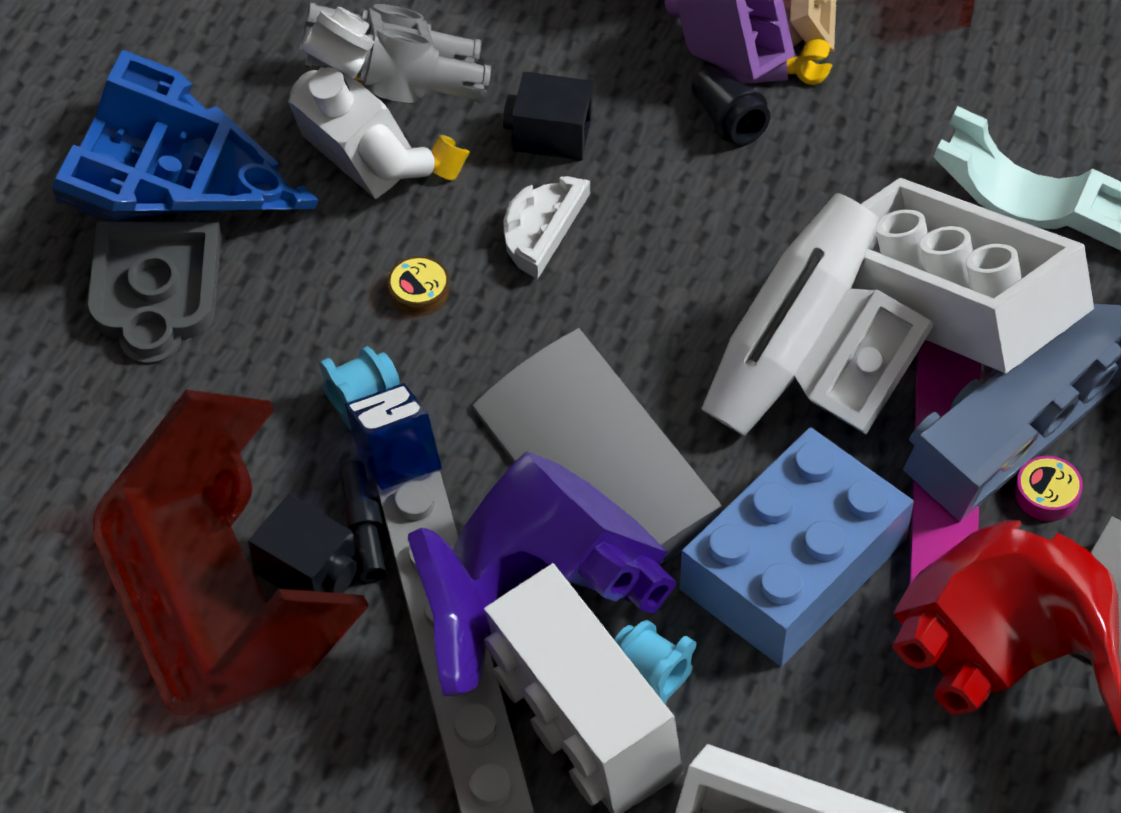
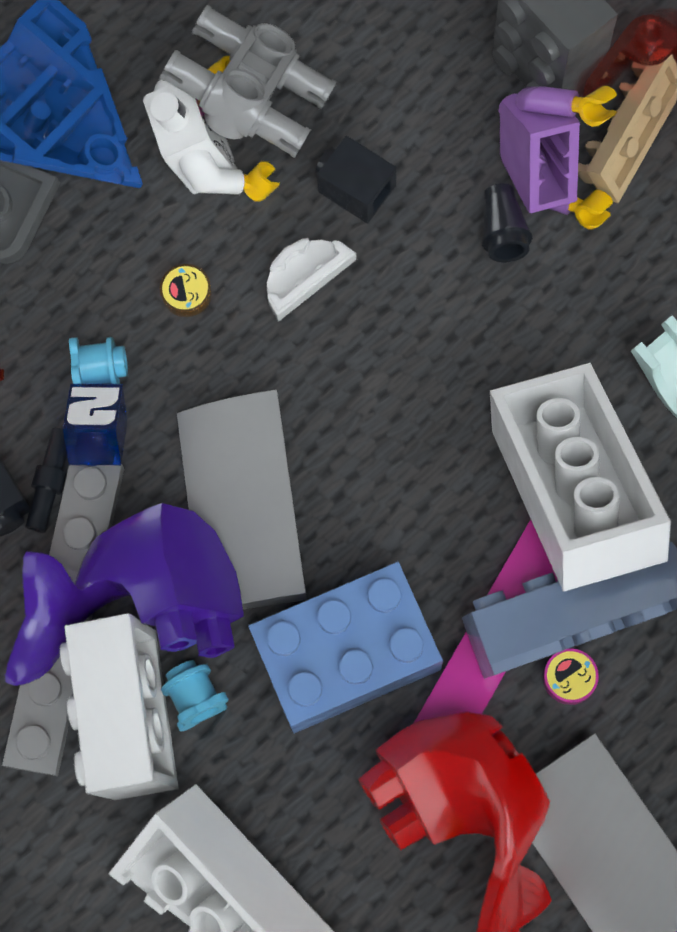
camera: 30 degrees right, 20 degrees up
(339, 41) = (186, 74): white plate -> none
(812, 327) = (444, 473): white plate -> none

